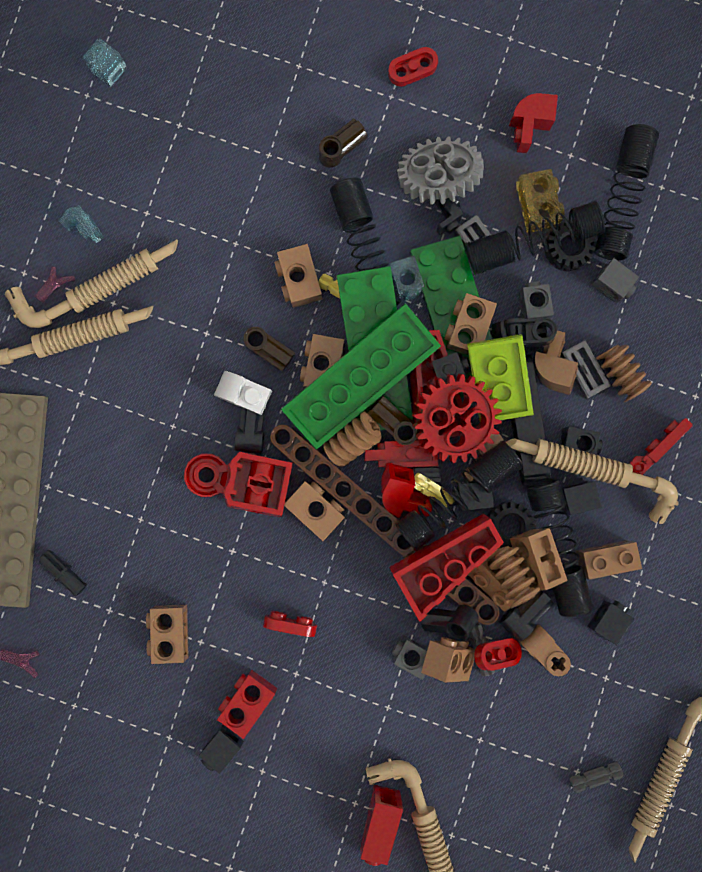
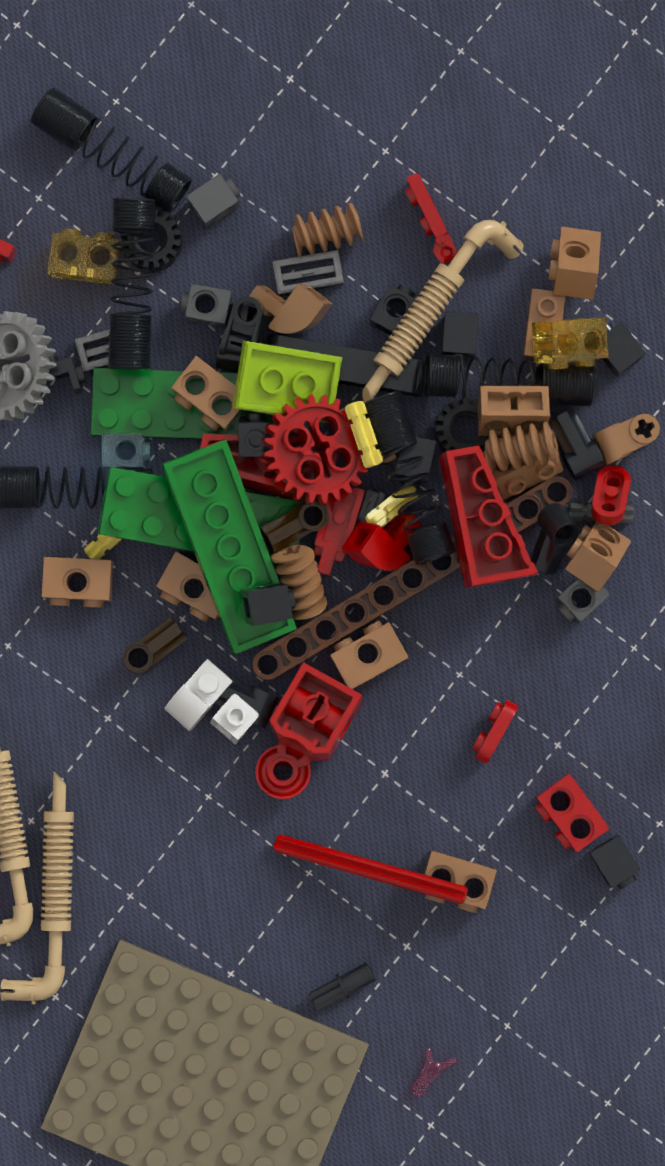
camera: 70 degrees left, 0 degrees up
(153, 628) = (371, 869): none -> red axle
(235, 426) = (234, 718): none -> white bracket
(326, 421) = (268, 603): none -> black brick
(481, 450) = (363, 434): none -> light yellow axle
(608, 585) = (570, 340): none -> clear yellow brick
(666, 568) = (575, 262): none -> medium nougat brick

